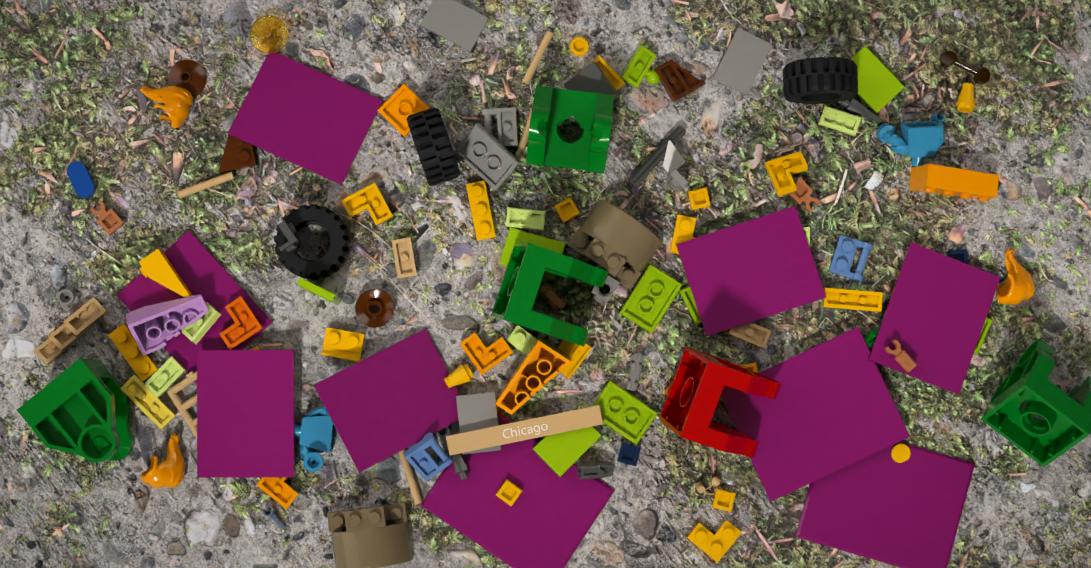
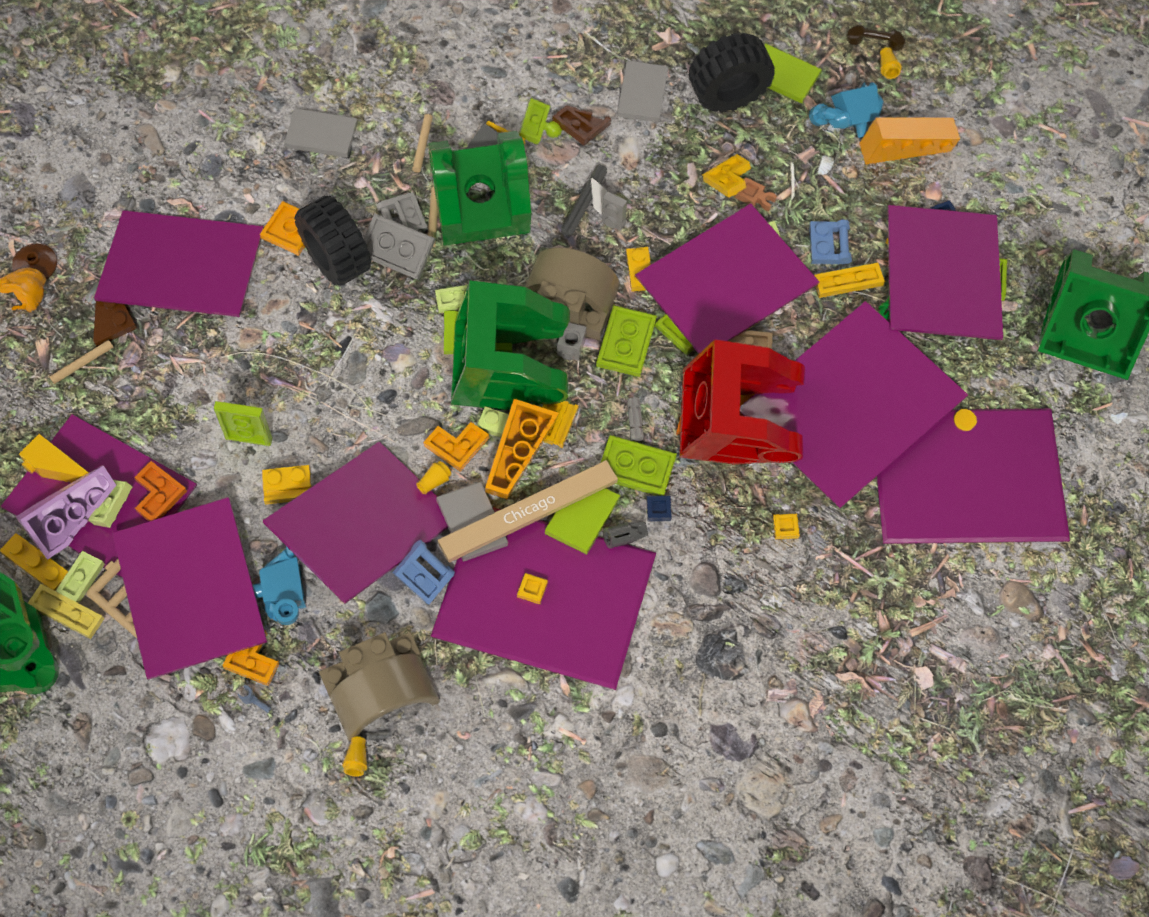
camera: 15 degrees left, 20 degrees down
(169, 471) = (108, 682): light orange piece -> none
(262, 28) = (116, 186): clear yellow dish -> none
(289, 232) = (192, 367): dark grey bracket -> none
(332, 259) = (216, 355): black tyre -> none
(364, 308) = (310, 424): reddish brown dish -> none
(370, 199) = (275, 324): yellow plate -> none
(404, 258) = (333, 373): tan plate -> none
(410, 478) = (408, 605): tan bar -> none
(459, 463) = (464, 573): dark grey piece -> none
(480, 210) = (406, 304): yellow plate -> none
(567, 210) = (503, 275): yellow tile -> none
(579, 46) = (464, 121): yellow tile -> none
(699, 198) = (644, 229): yellow tile -> none
(714, 544) = (792, 577): yellow plate -> none
(716, 481) = (769, 509): tan piece -> none
(839, 120) = (766, 116): yellowish green plate -> none
(854, 107) = (781, 102): dark grey piece -> none
(901, 356) = (924, 312): nougat bar -> none
(1018, 285) = (1019, 215): light orange piece -> none

